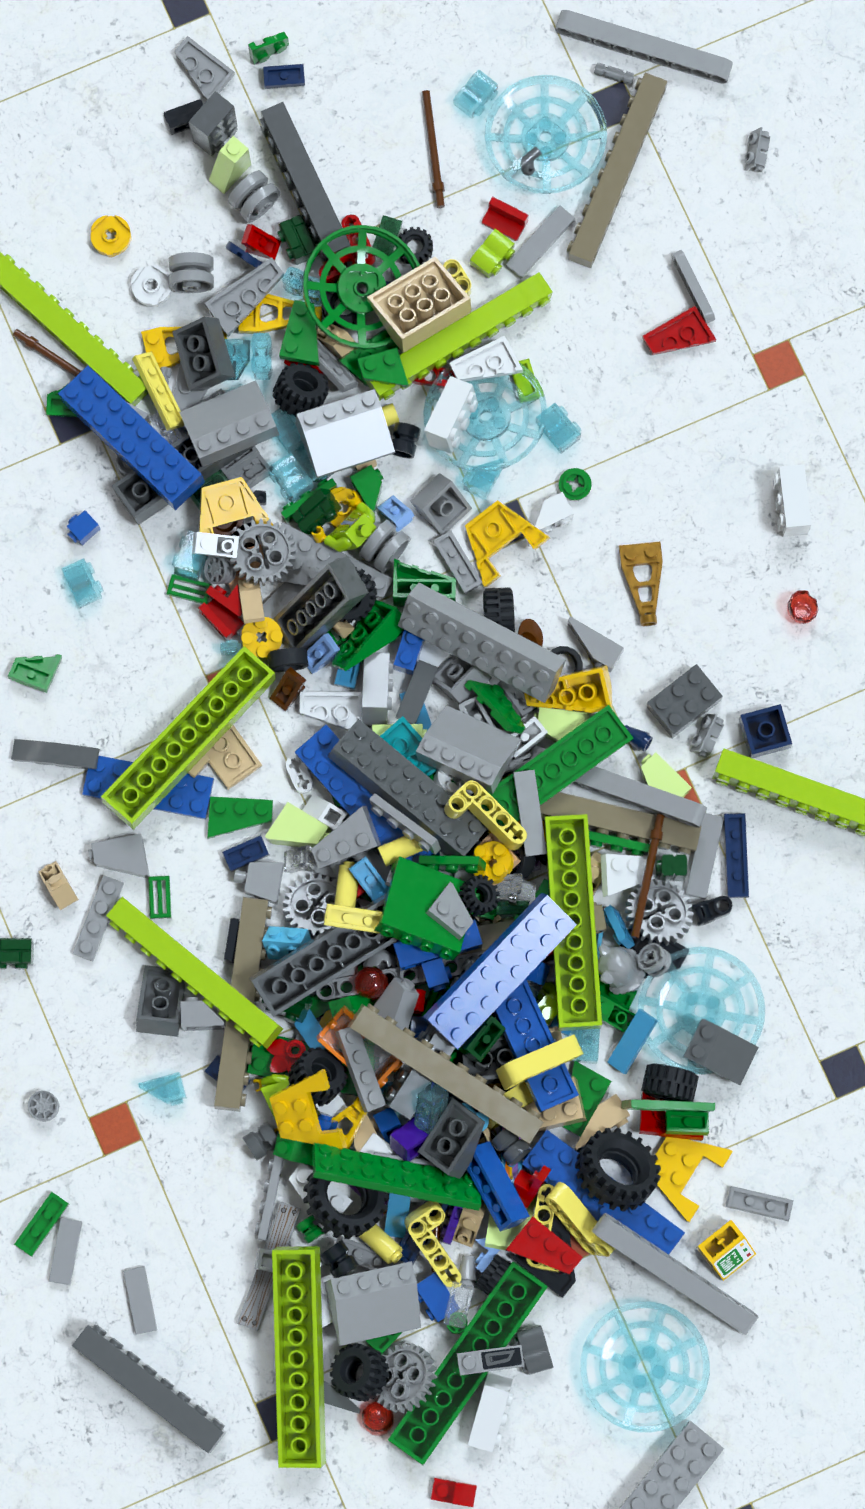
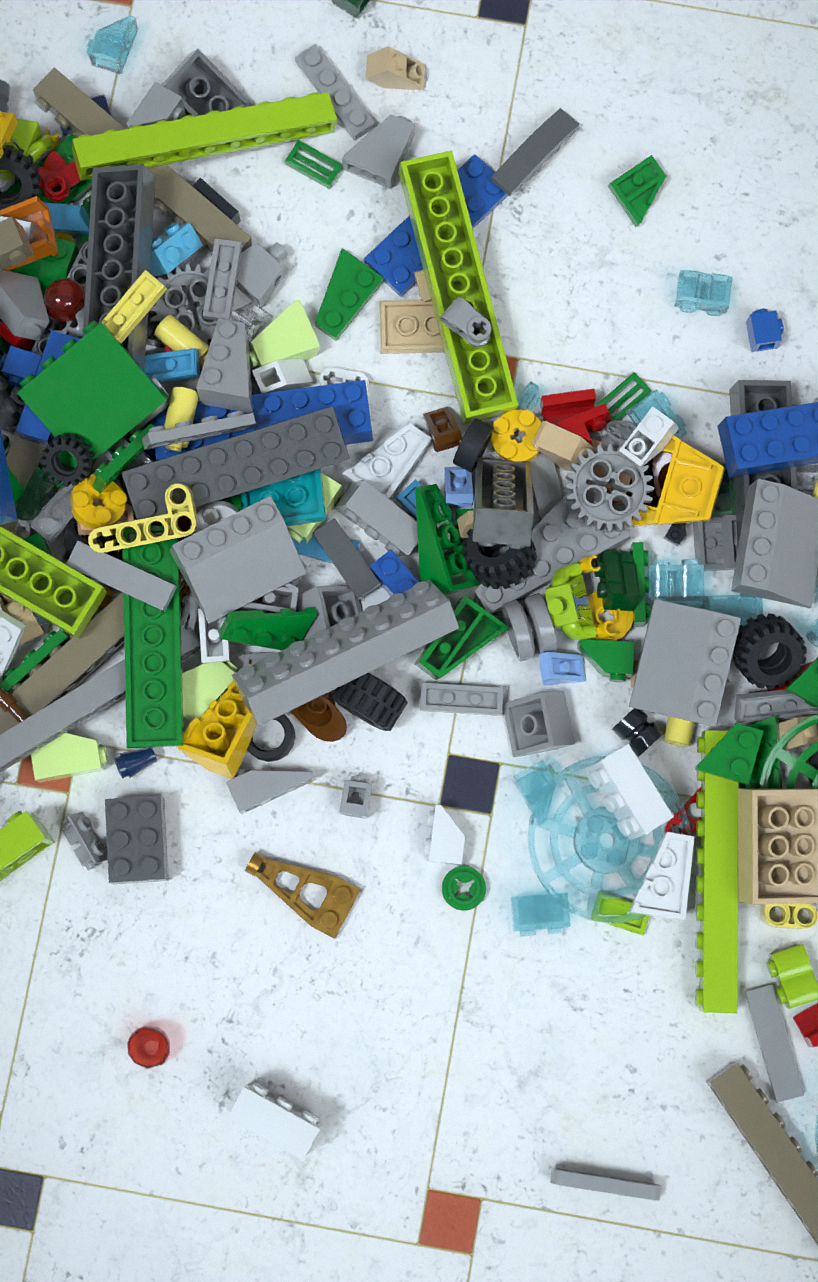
camera: 120 degrees right, 0 degrees up
(213, 711) = (463, 319): none -> light grey piece
(245, 853) = (298, 274): dark blue plate -> none
(287, 892) = (222, 279): none -> light grey plate
(451, 912) = (67, 413): light grey wing -> none
(493, 531) = (469, 762): yellow wing -> none
(568, 578) = (351, 808): none -> light grey brick
(679, 333) = (560, 1132): red wing -> none
(765, 731) = (39, 905): dark blue brick -> none

